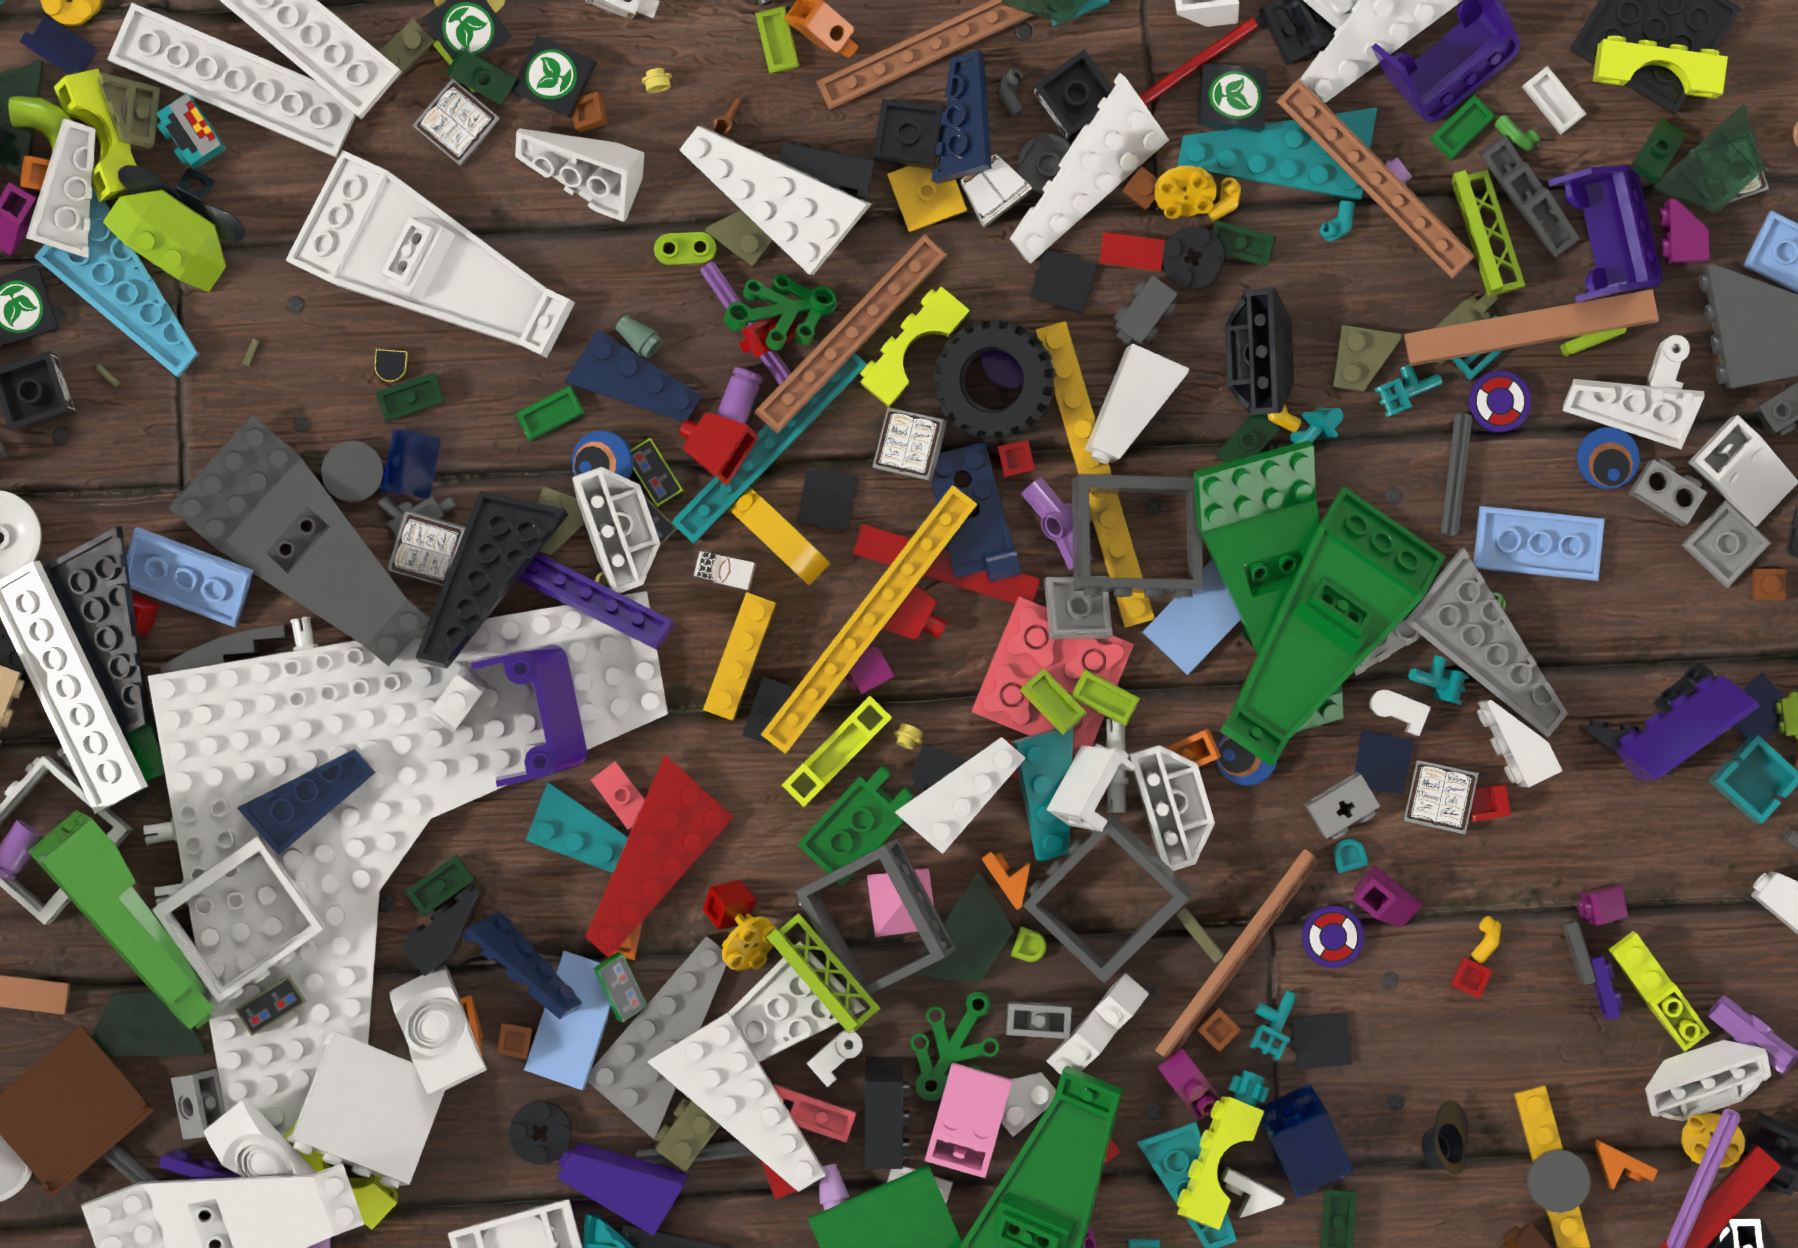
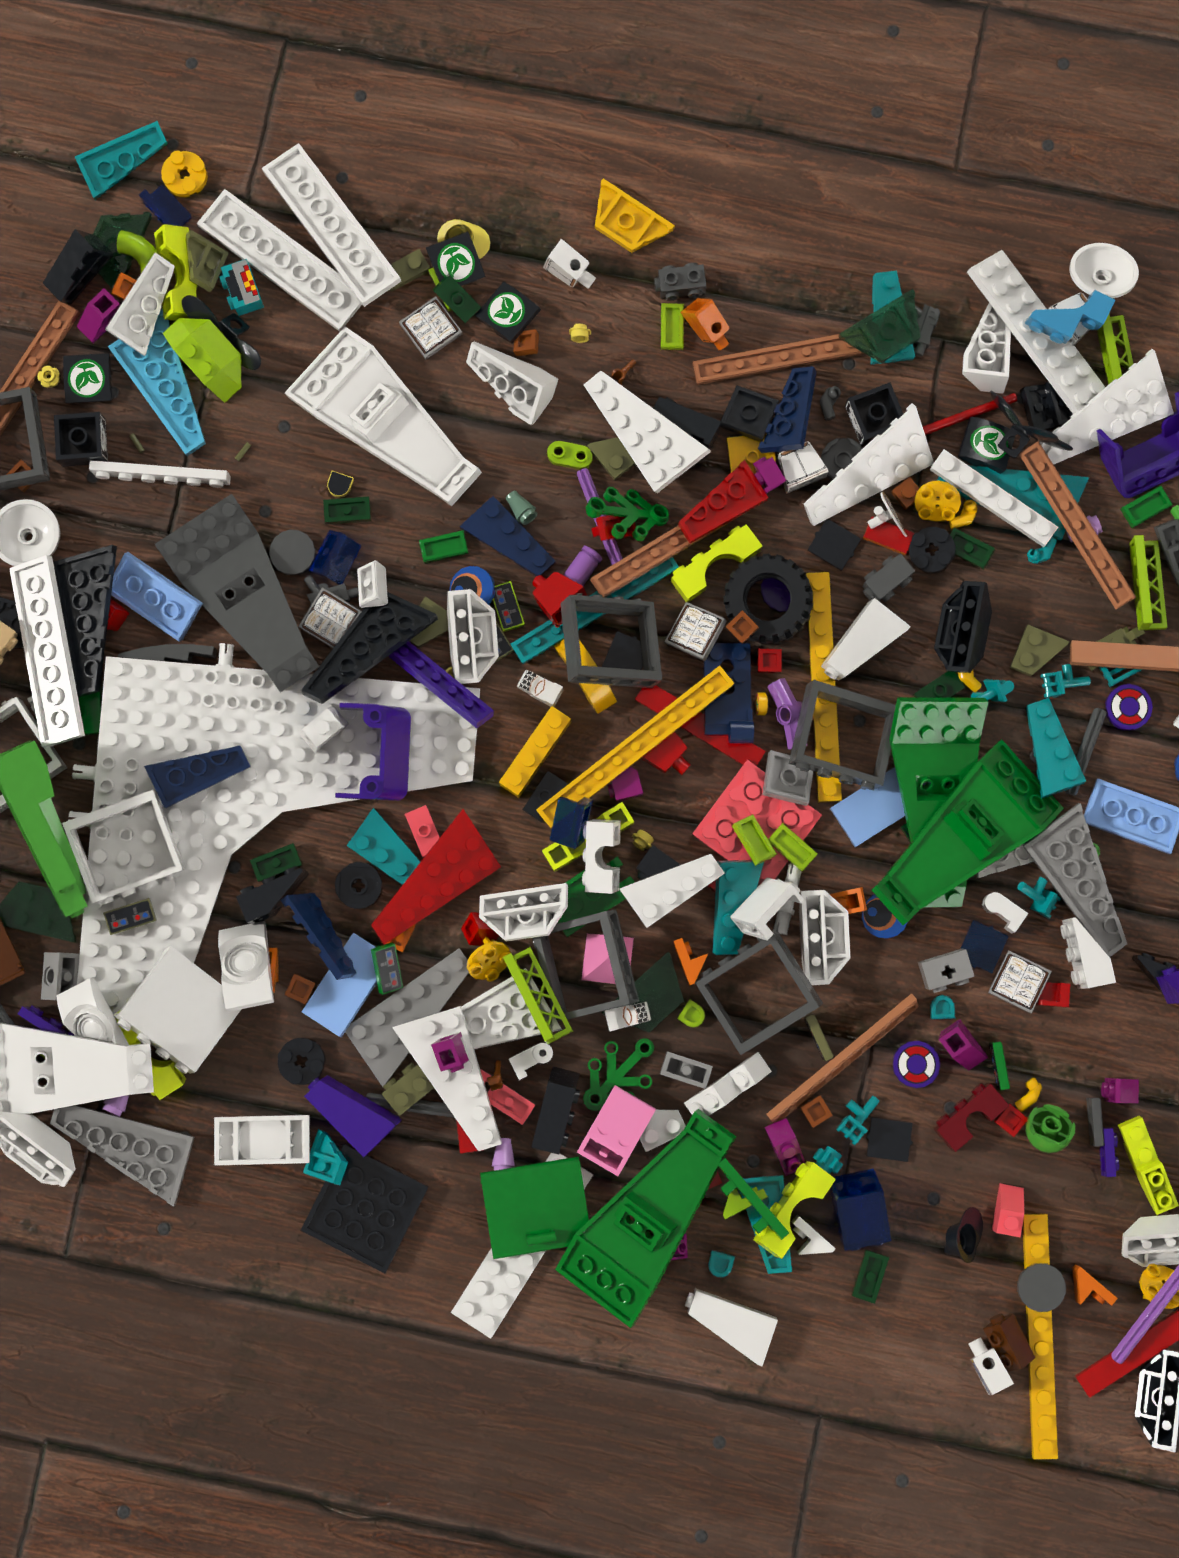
camera: 10 degrees right, 5 degrees down
(162, 409) = (169, 474): none -> white plate
(470, 489) = (372, 585): none -> white slope
(540, 878) = (368, 876): none -> black plate
(730, 1077) = (450, 1052): none -> magenta brick
(779, 870) = (524, 911): none -> white wedge
(797, 1096) = (495, 1081): none -> dark orange hand
(810, 739) = (570, 821): none -> clear blue panel
(851, 471) = (611, 676): none -> dark grey window
(863, 799) = (598, 875): none -> white arch
(908, 262) = (727, 501): none -> red wing
(946, 970) = (627, 1016): none -> white leg
(953, 212) = (768, 474): none -> magenta brick
(969, 429) = (742, 627): none -> dark orange plate
(1019, 518) = (761, 703): none -> yellow tile
(1126, 224) = (883, 516): none -> white shield
(1139, 1148) = (736, 1181): none -> green hinge
(1144, 1175) = (736, 1204): none -> lime slope
(1258, 169) = (993, 498): none -> white plate
(1279, 74) = (1024, 432): none -> black piece
(1417, 492) = (1054, 756): none -> teal wing
(1429, 961) = (953, 1127): none -> dark red arch
(1439, 911) = (999, 1065): none -> green tile
(1495, 1093) = (1009, 1210): none -> coral slope
(1522, 977) = (1049, 1129): none -> bright green cylinder

